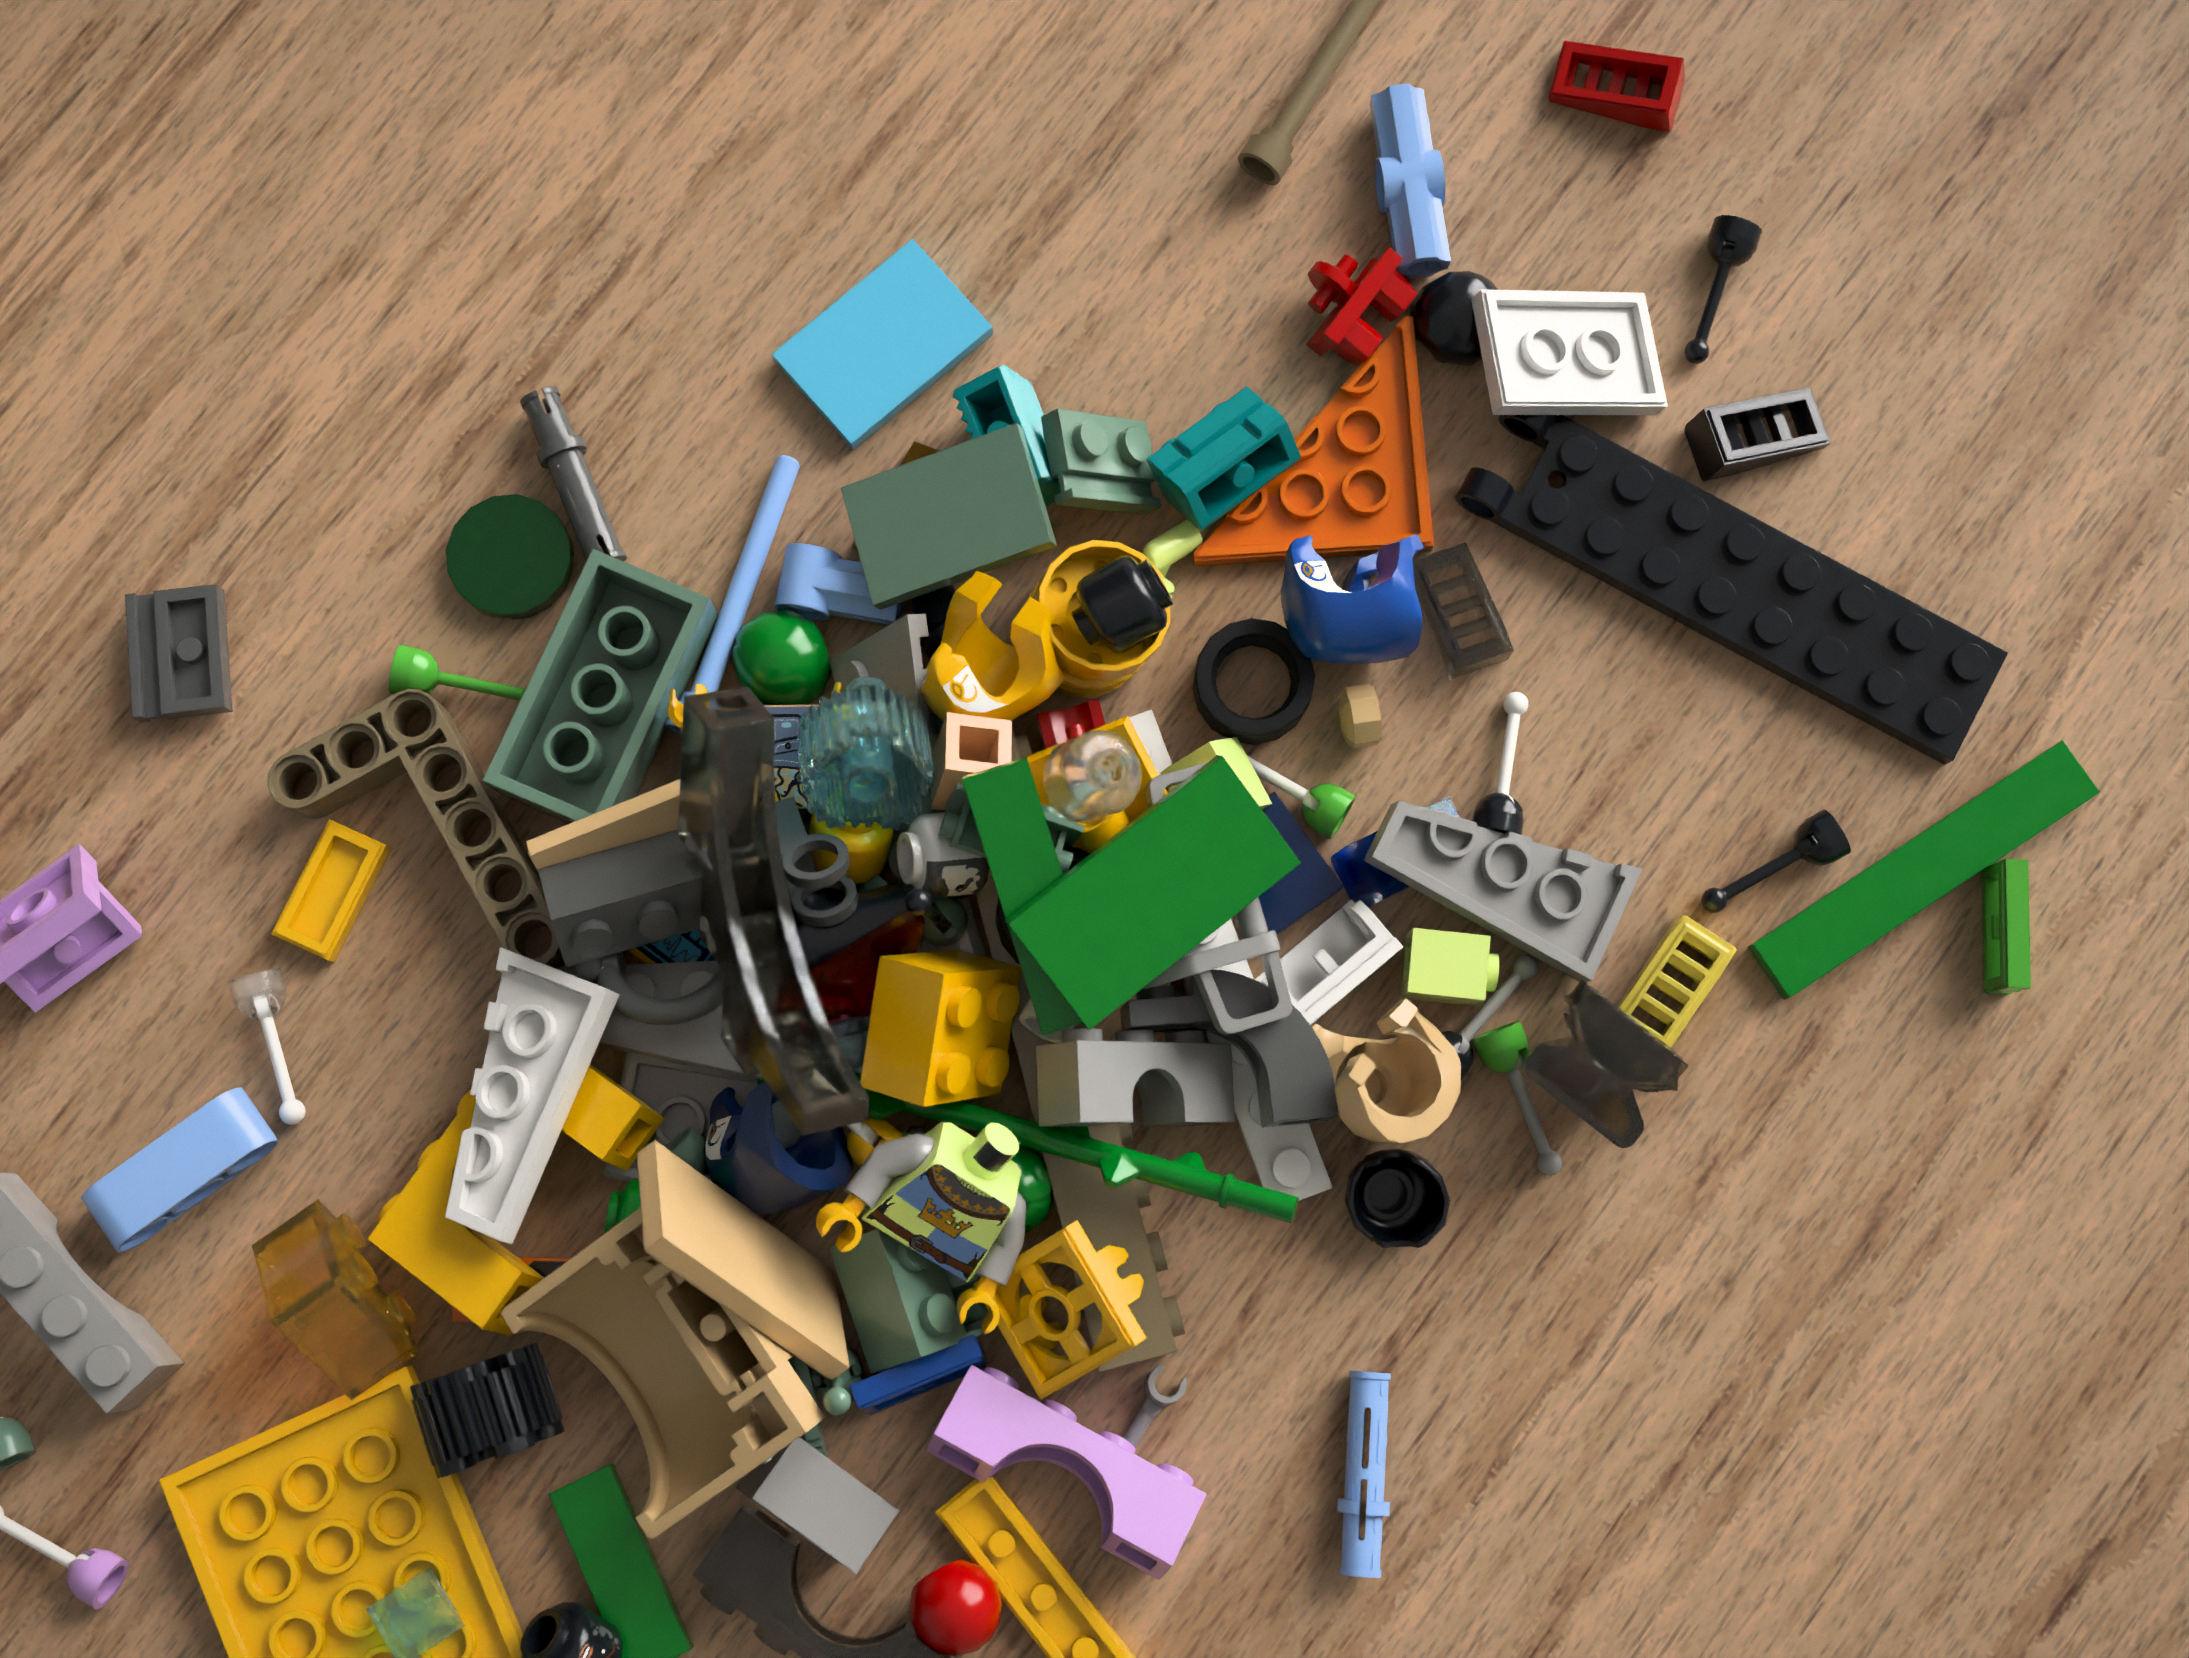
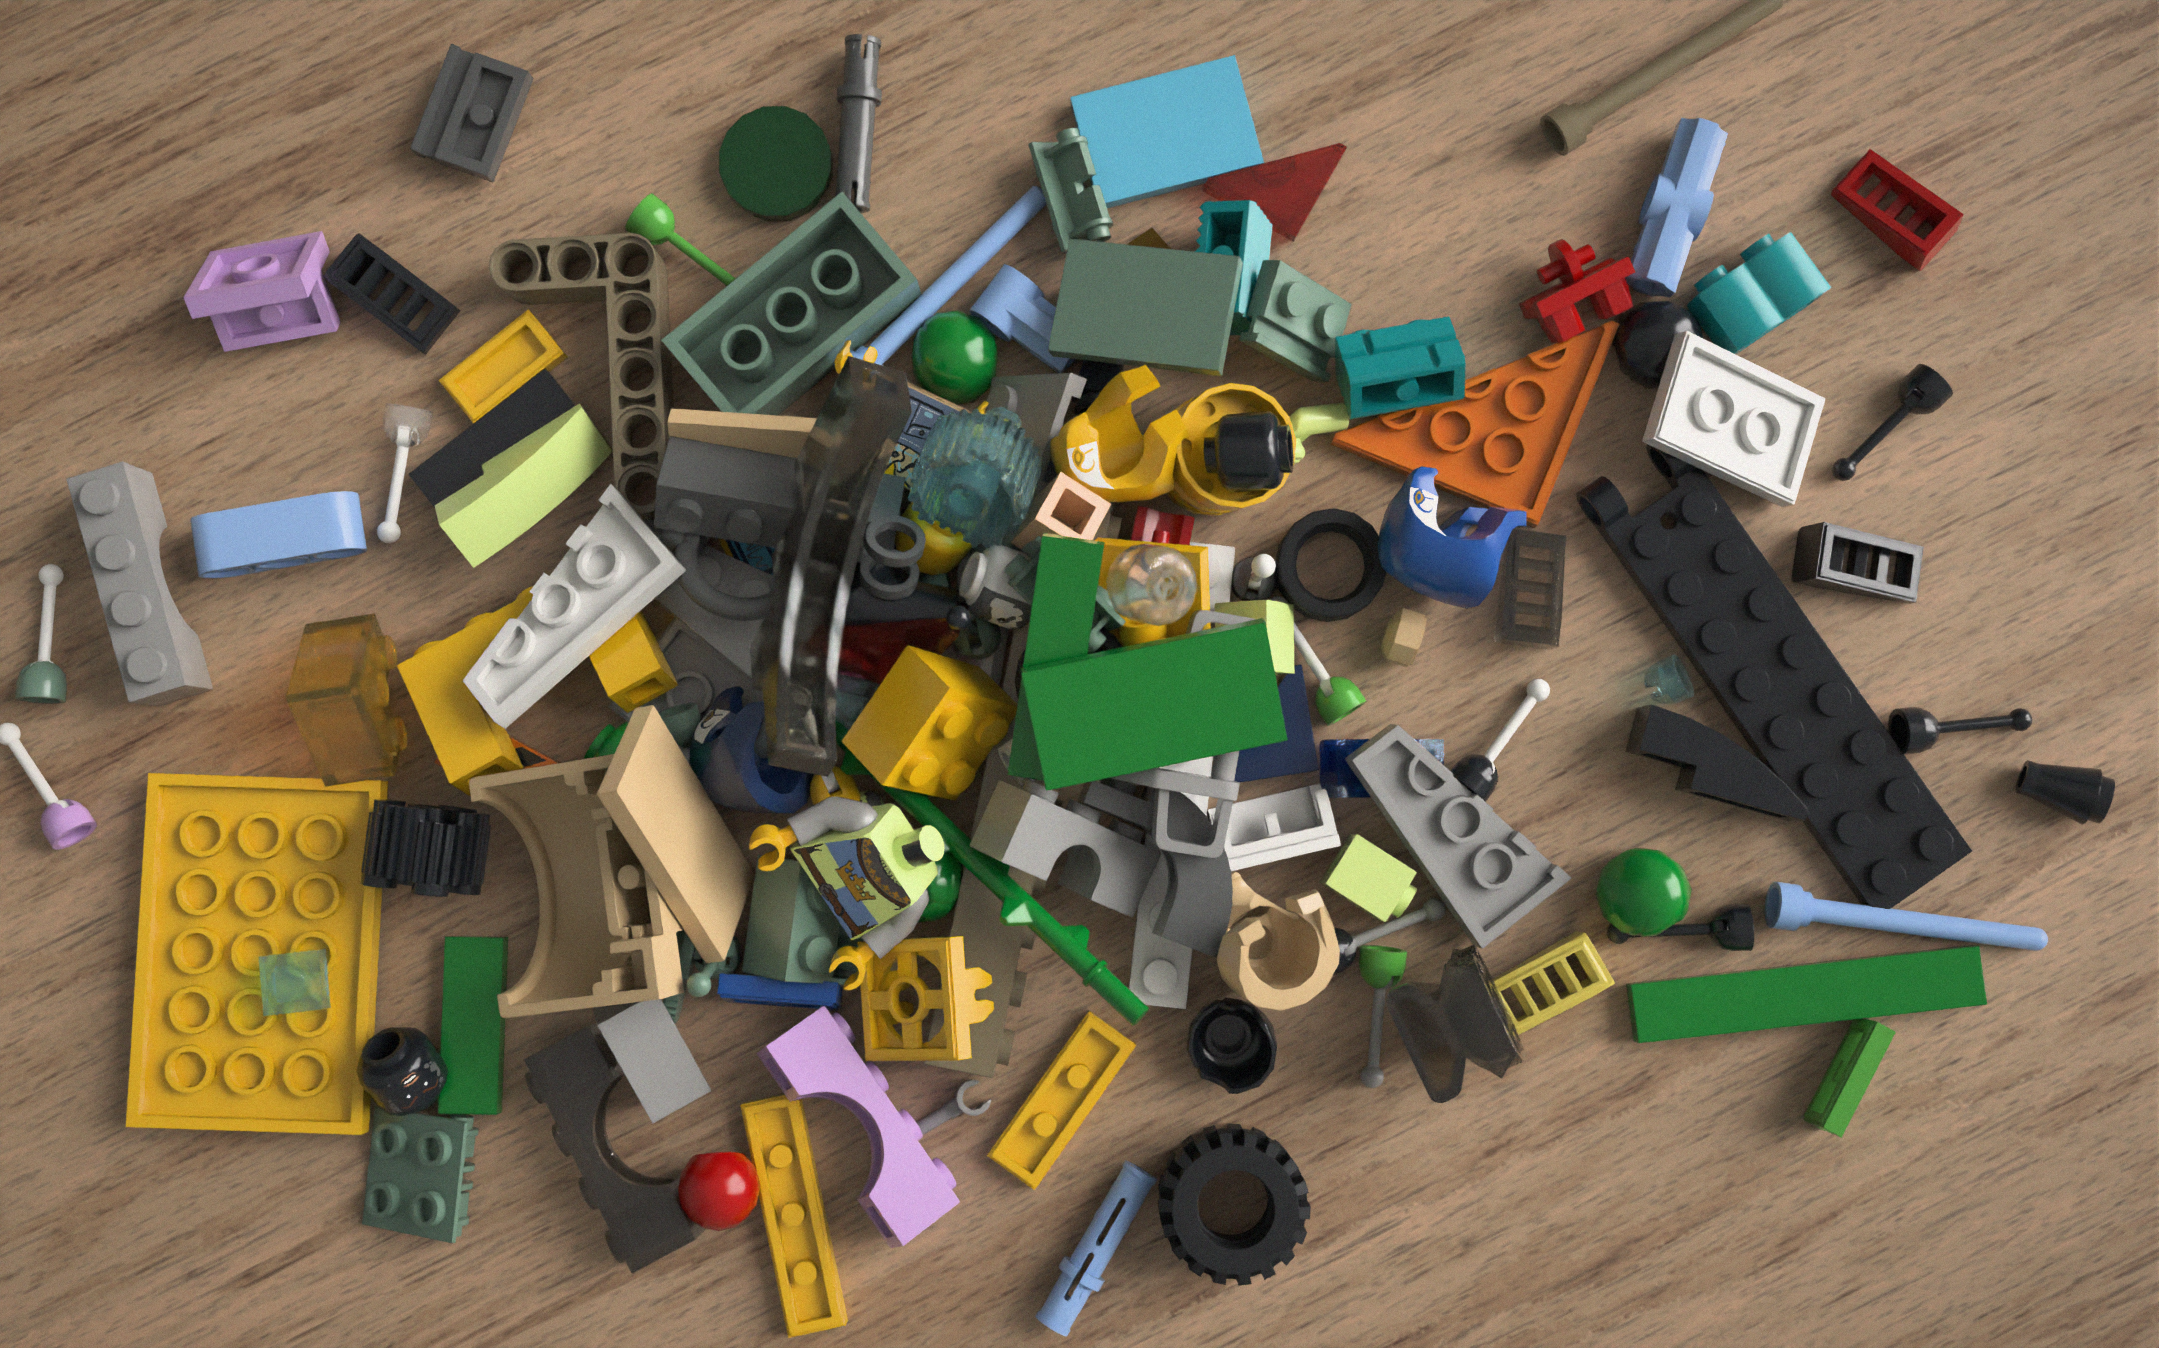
camera: 30 degrees right, 5 degrees up
(128, 859) = (352, 265): none -> black slope
(361, 970) = (503, 426): none -> black tile
(409, 995) = (522, 485): none -> yellowish green slope
(800, 431) = (1062, 172): none -> sand green hinge
(1024, 340) = (1282, 187): none -> clear red tile
(1186, 725) = (1257, 574): none -> dark grey hinge
(1255, 1342) = (1061, 1099): none -> yellow tile
(1530, 224) = (1757, 295): none -> teal brick
(1533, 1369) = (1243, 1253): none -> black tyre
(1638, 630) = (1671, 680): none -> clear light blue hinge
(1717, 848) = (1643, 892): none -> green hair
(1719, 691) = (1712, 764): none -> black slope
(1866, 791) = (1792, 907): none -> light blue piece
(1897, 562) = (1919, 730): none -> black hinge
(2066, 550) = (2070, 790): none -> black cone

